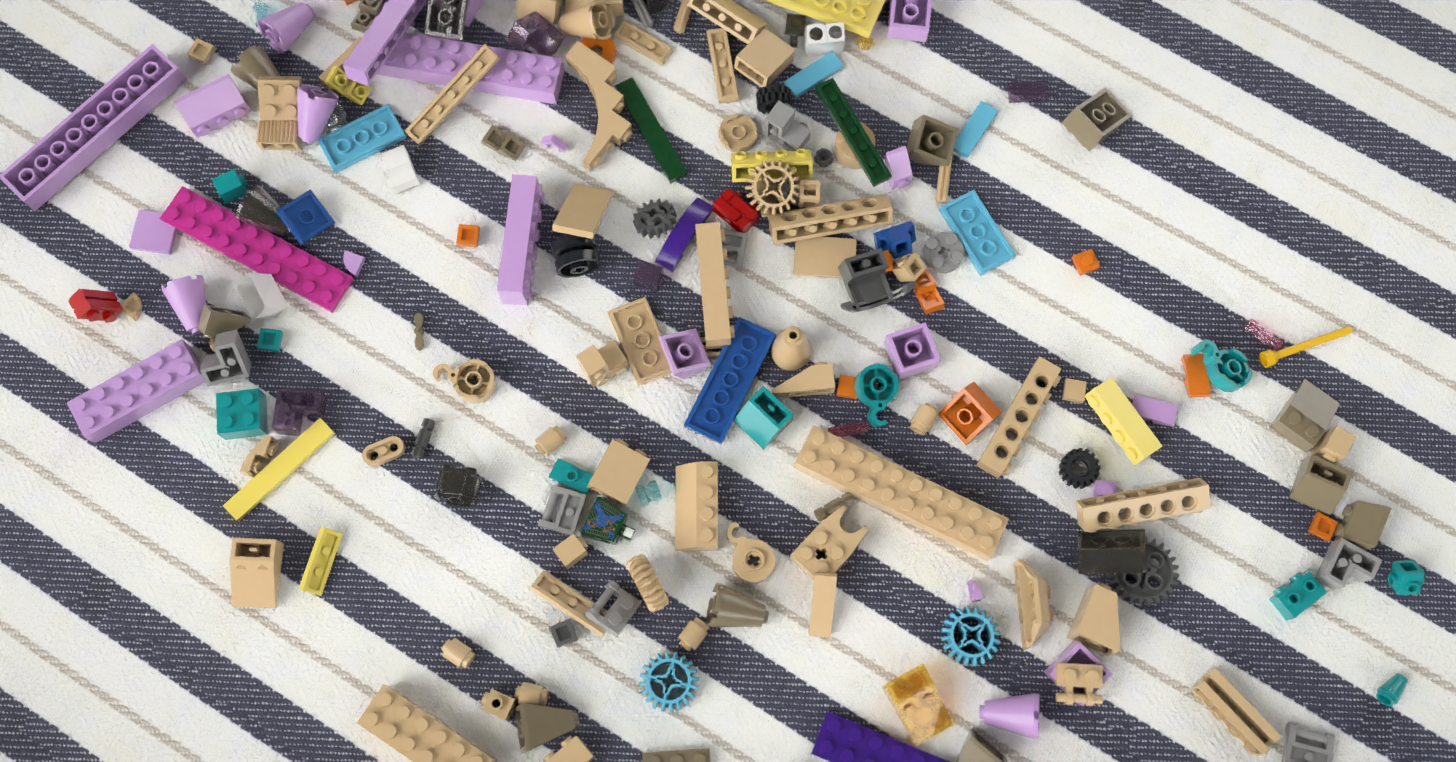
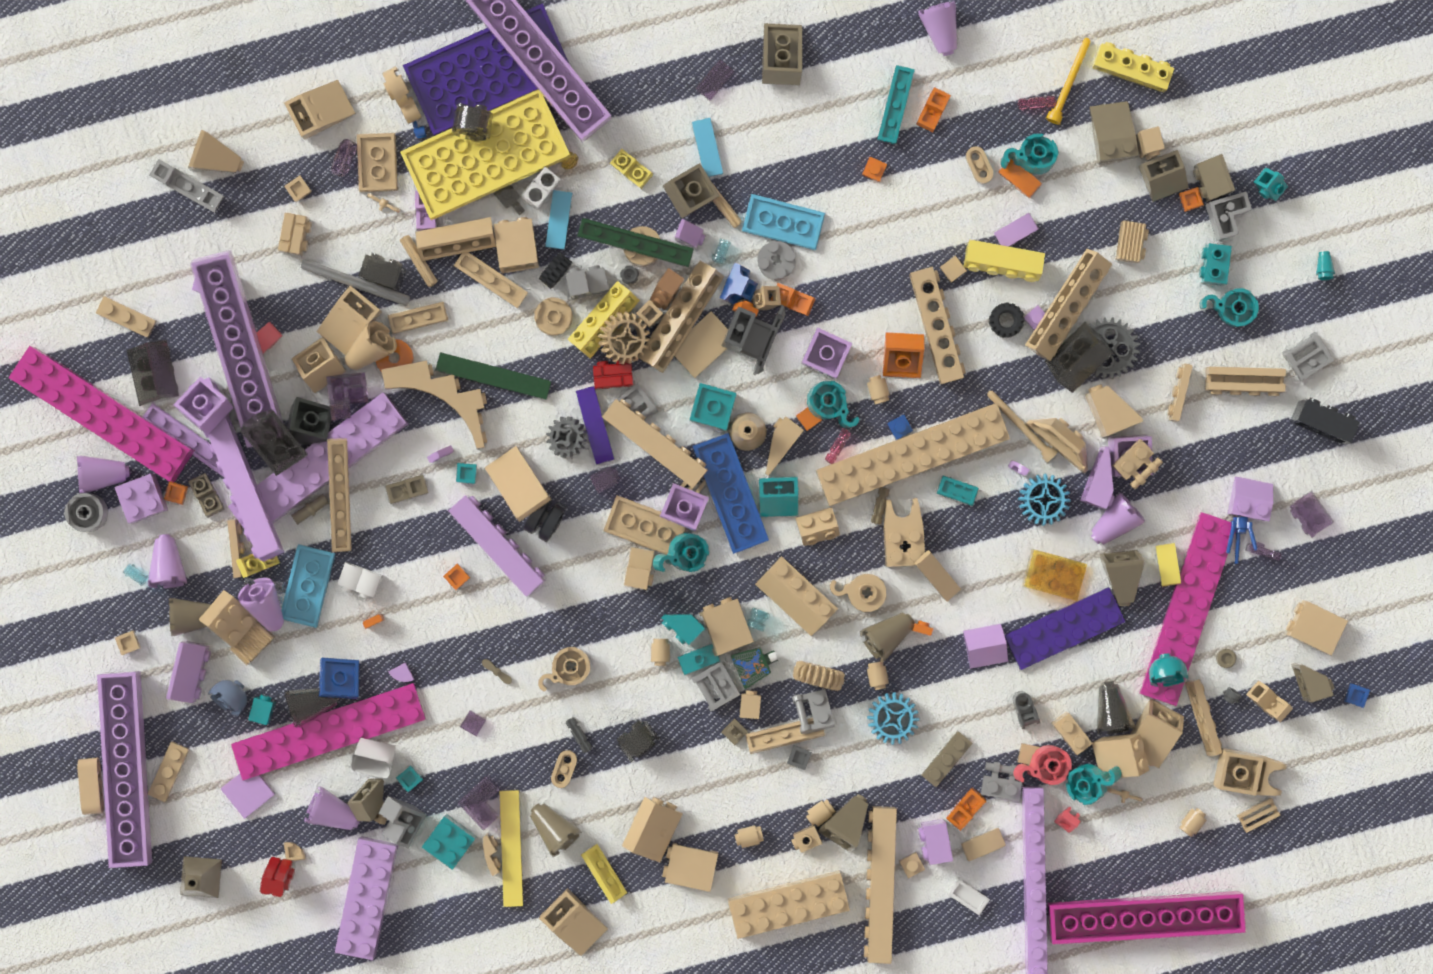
camera: 50 degrees left, 15 degrees up
(49, 252) = (201, 877): none -> dark tan slope
(57, 113) = (90, 786): none -> tan beam
(121, 163) = (168, 771): none -> tan plate
(221, 152) = (229, 696): none -> sand blue cylinder
(323, 487) = (554, 829): none -> dark tan cone
(360, 350) = (473, 723): none -> clear purple plate
(376, 205) = (373, 621): none -> orange tile
(388, 628) = (690, 867): none -> tan panel
(392, 564) = (652, 828): none -> tan piece
(422, 89) = (310, 509): none -> dark tan pin
(487, 25) = (309, 421): none -> pearl dark grey slope
(537, 560) = (734, 731): none -> dark tan tile
(557, 173) = (466, 473): none -> teal plate
(588, 438) = (684, 625): none -> teal slope
(641, 380) = (678, 556): none -> teal piece
(768, 473) = (818, 526): none -> tan bracket
(768, 634) = (922, 627): none -> orange plate
(785, 303) = (713, 406): none -> teal panel
(803, 704) = (985, 646): none -> lavender slope
(840, 186) = (666, 289): none -> medium nougat brick
(903, 91) = (631, 168): none -> light yellow slope
(907, 557) = (957, 490): none -> teal plate
(908, 206) = (721, 251): none -> clear light blue pin
(912, 462) = (899, 427): none -> blue plate
(1010, 602) = (1047, 452): none -> tan piece
(1029, 670) = (1100, 484): none -> lavender slope
(1149, 232) = (895, 104): none -> teal plate
(1168, 665) = (1179, 392): none -> tan plate
(1171, 336) = (979, 165): none -> tan plate
(1175, 264) = (933, 109): none -> orange slope
(1242, 508) = (1131, 242): none -> tan brick
(1243, 207) = (941, 26): none -> lavender cone
(1275, 636) = (1226, 305): none -> teal piece
(1370, 382) = (1133, 67): none -> light yellow brick

